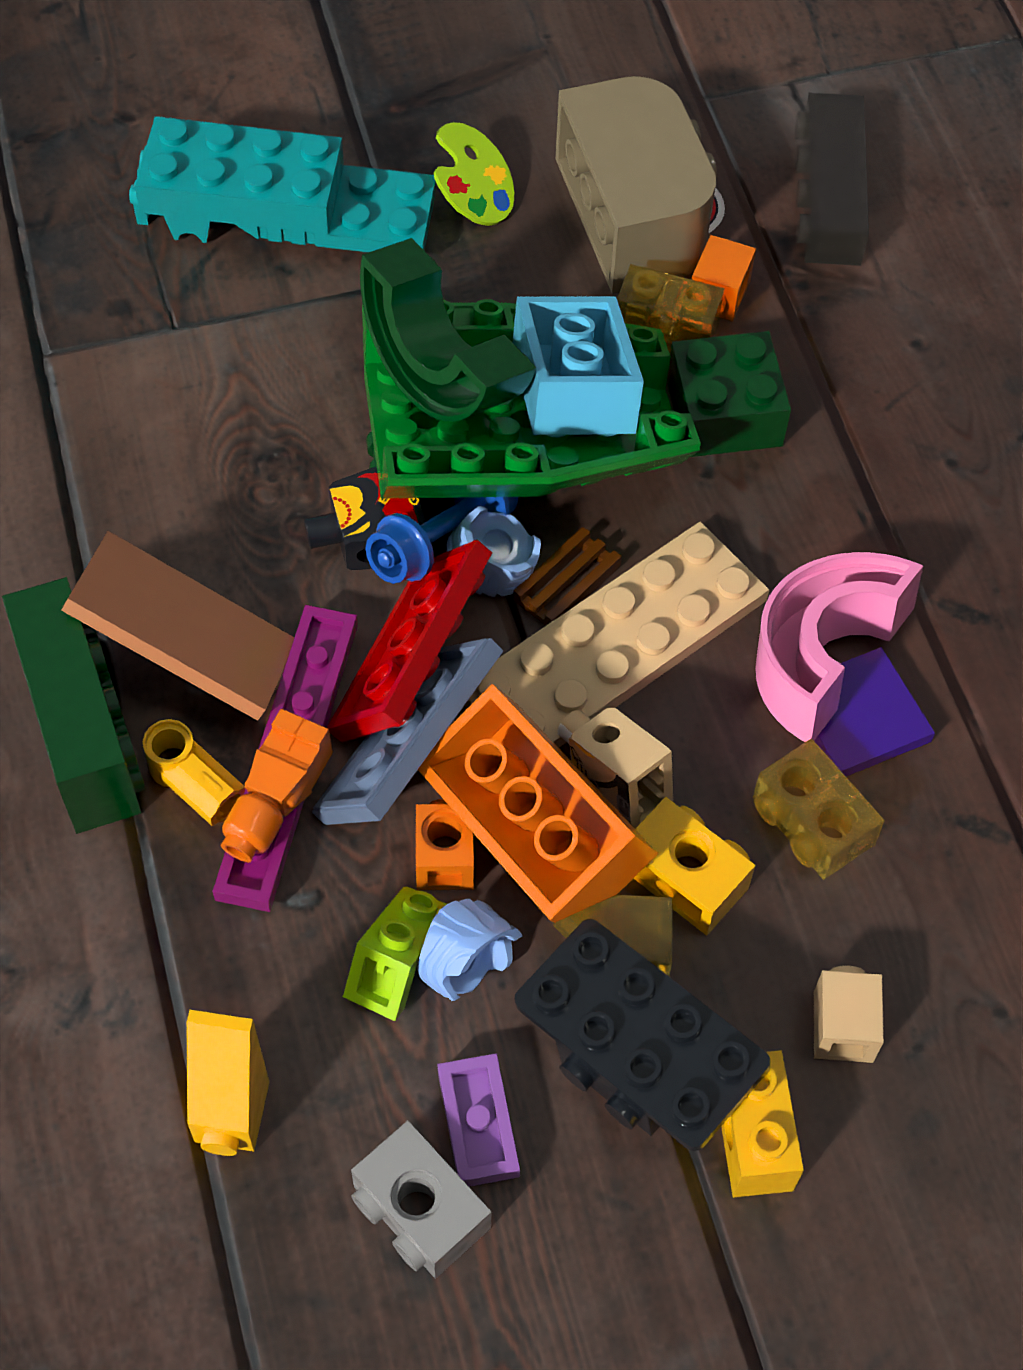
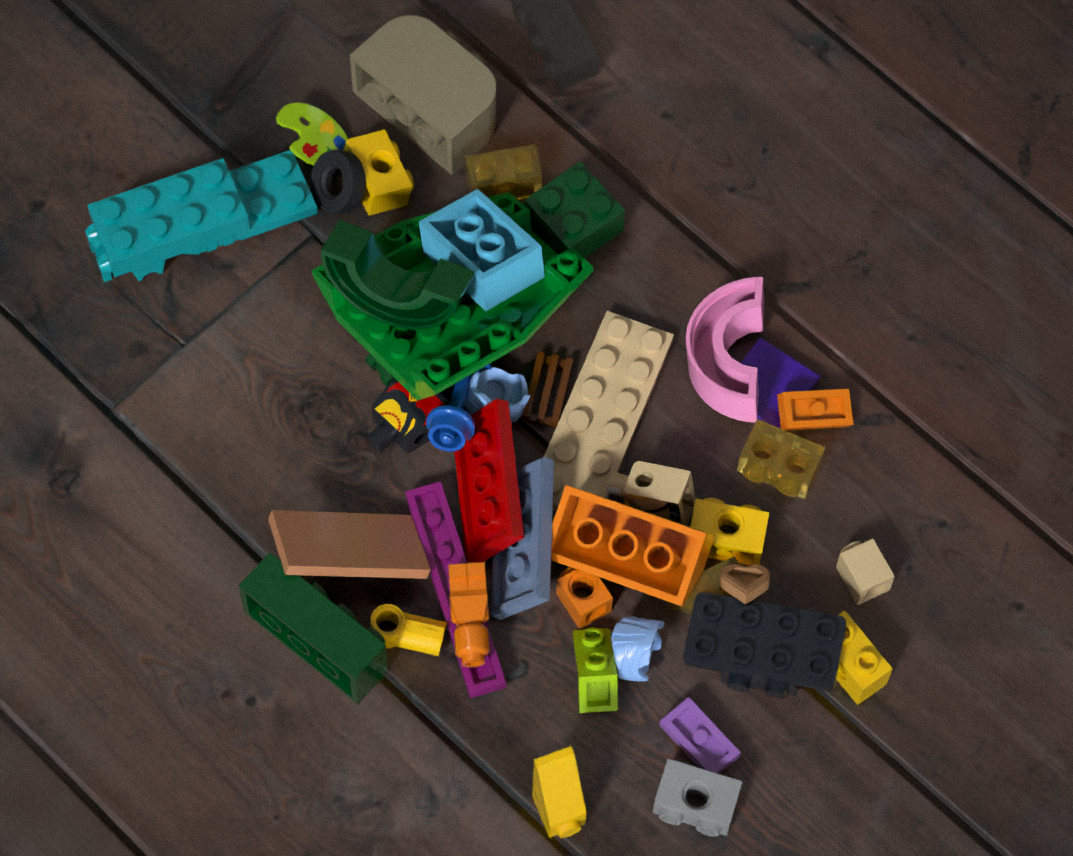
camera: 30 degrees left, 5 degrees up
(464, 229) = (353, 182): none -> black tyre
(520, 243) = (385, 189): none -> yellow brick
(662, 937) = (745, 582): none -> medium nougat tile
(728, 267) = (521, 127): orange brick -> none
(901, 768) = (815, 409): none -> orange plate

